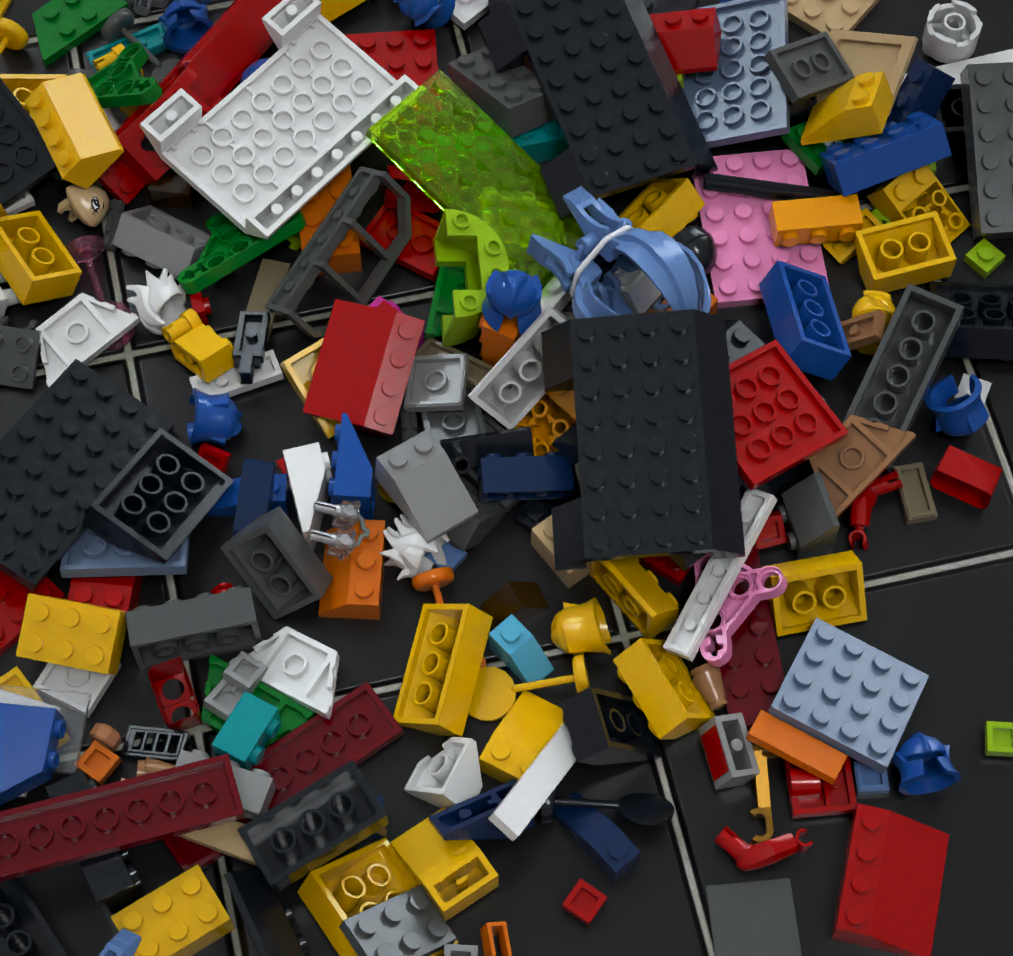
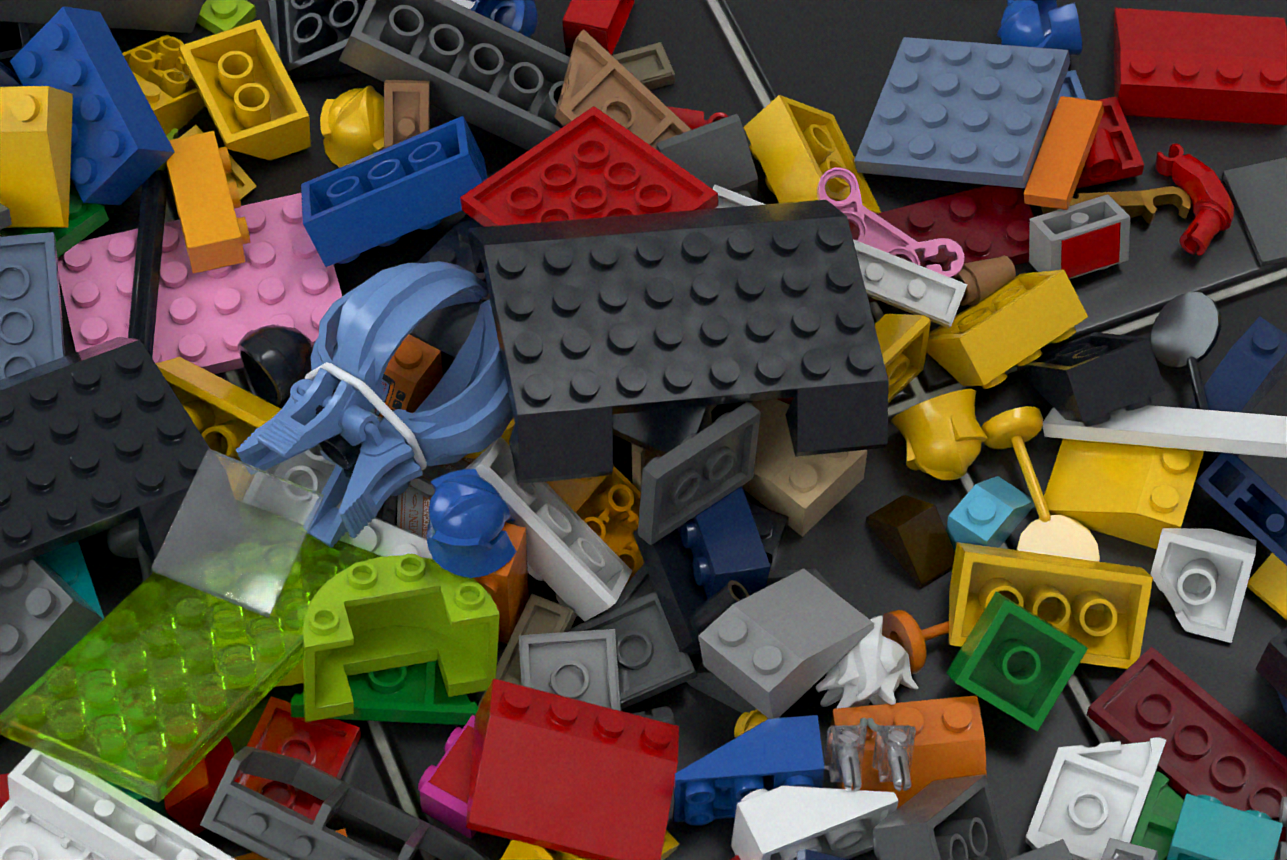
camera: 100 degrees left, 5 degrees down
(396, 632) = (1016, 661): none -> green brick
(535, 198) = (238, 533): none -> clear piece
(543, 445) = (698, 472): none -> dark grey plate

